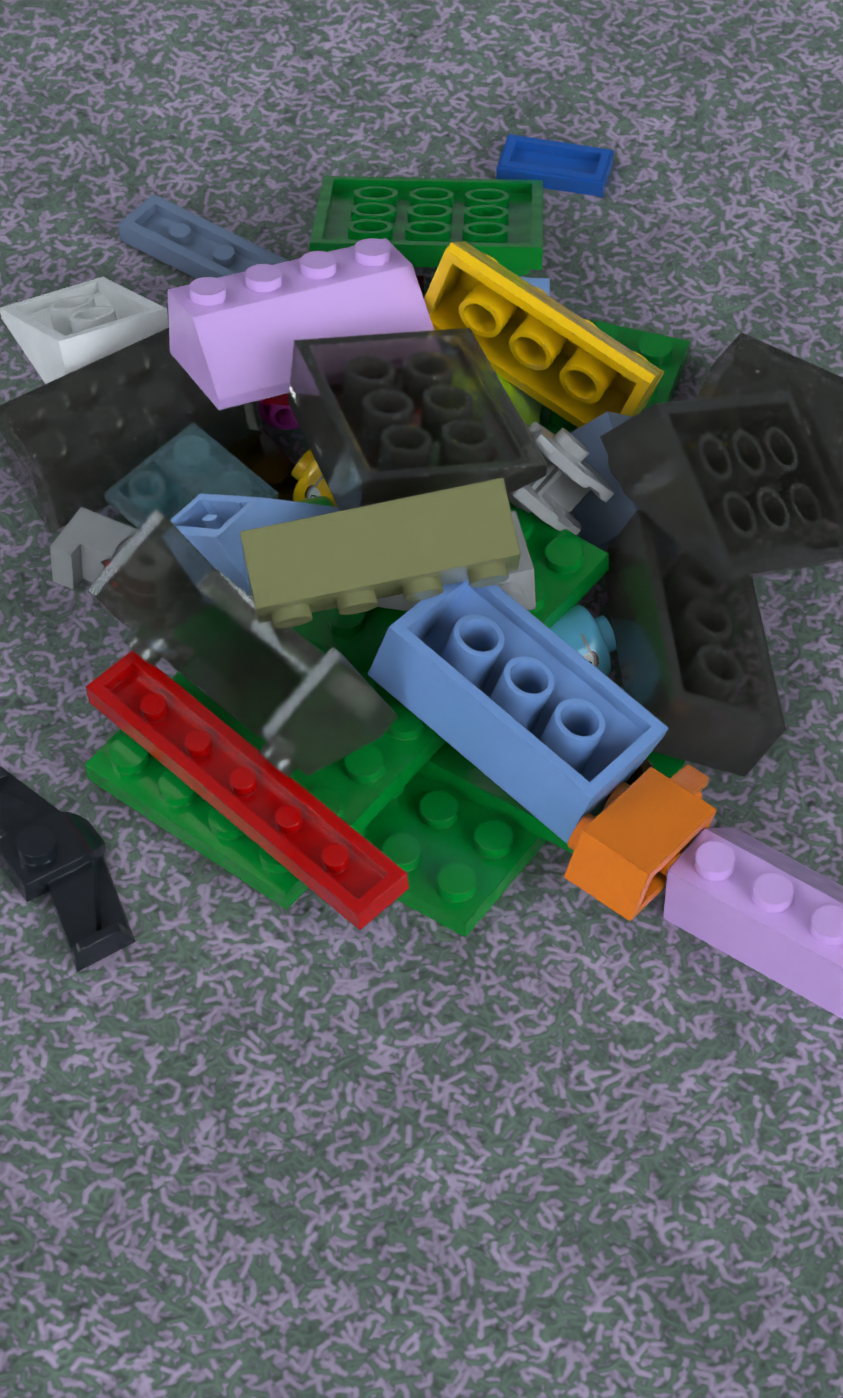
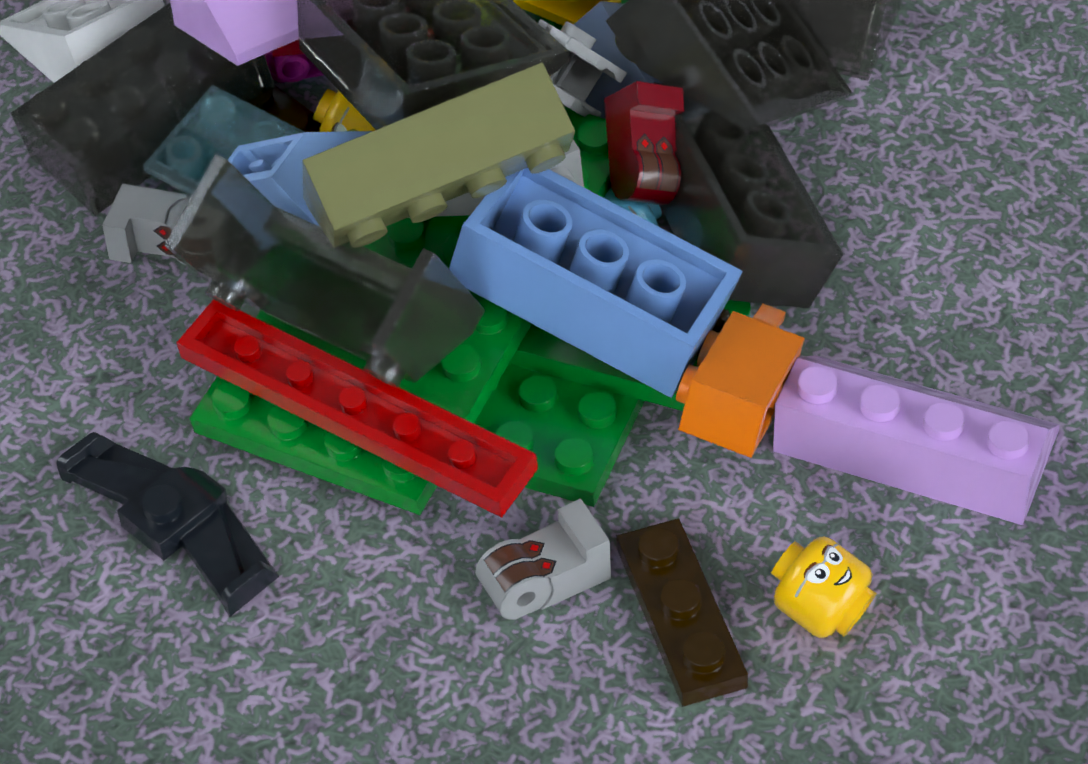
camera: 10 degrees left, 0 degrees up
(397, 985) = (546, 564): none -> light grey leg
(520, 1062) = (681, 612): none -> dark brown plate
(609, 572) = (643, 142): none -> dark red leg
(665, 1067) = (822, 587): none -> yellow head

